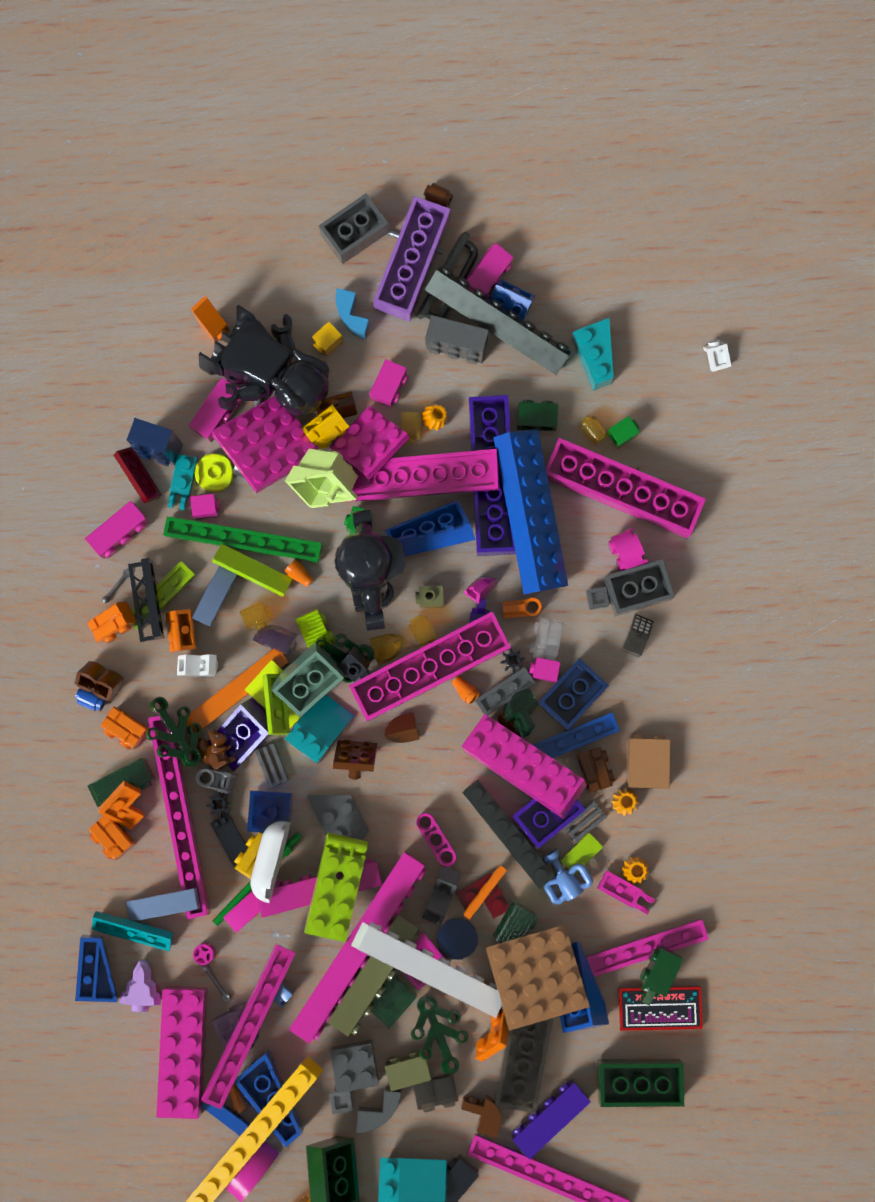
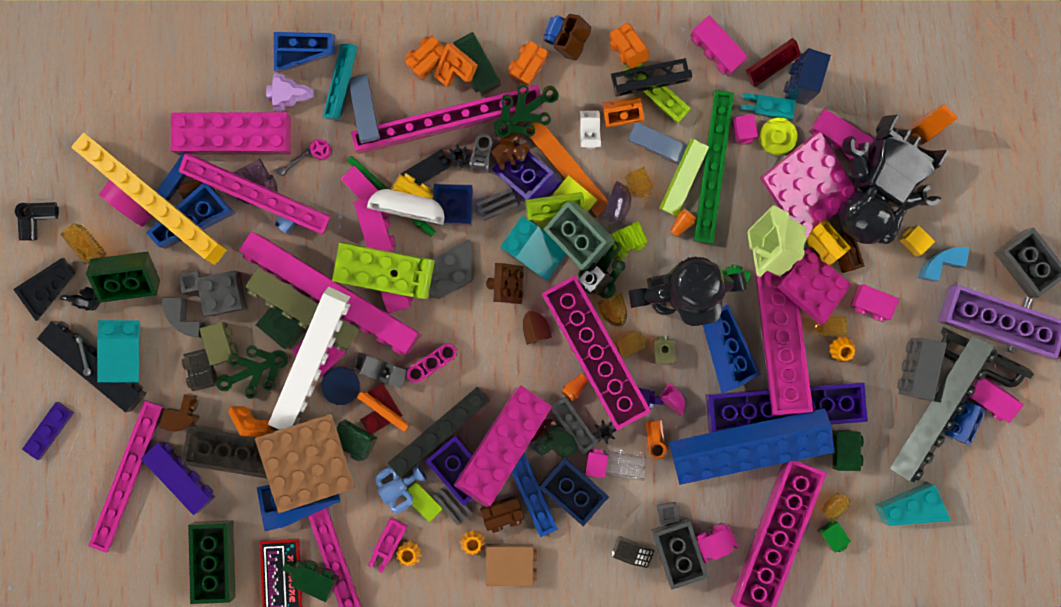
camera: 85 degrees right, 5 degrees up
(105, 599) = (651, 39): flat silver hinge -> none

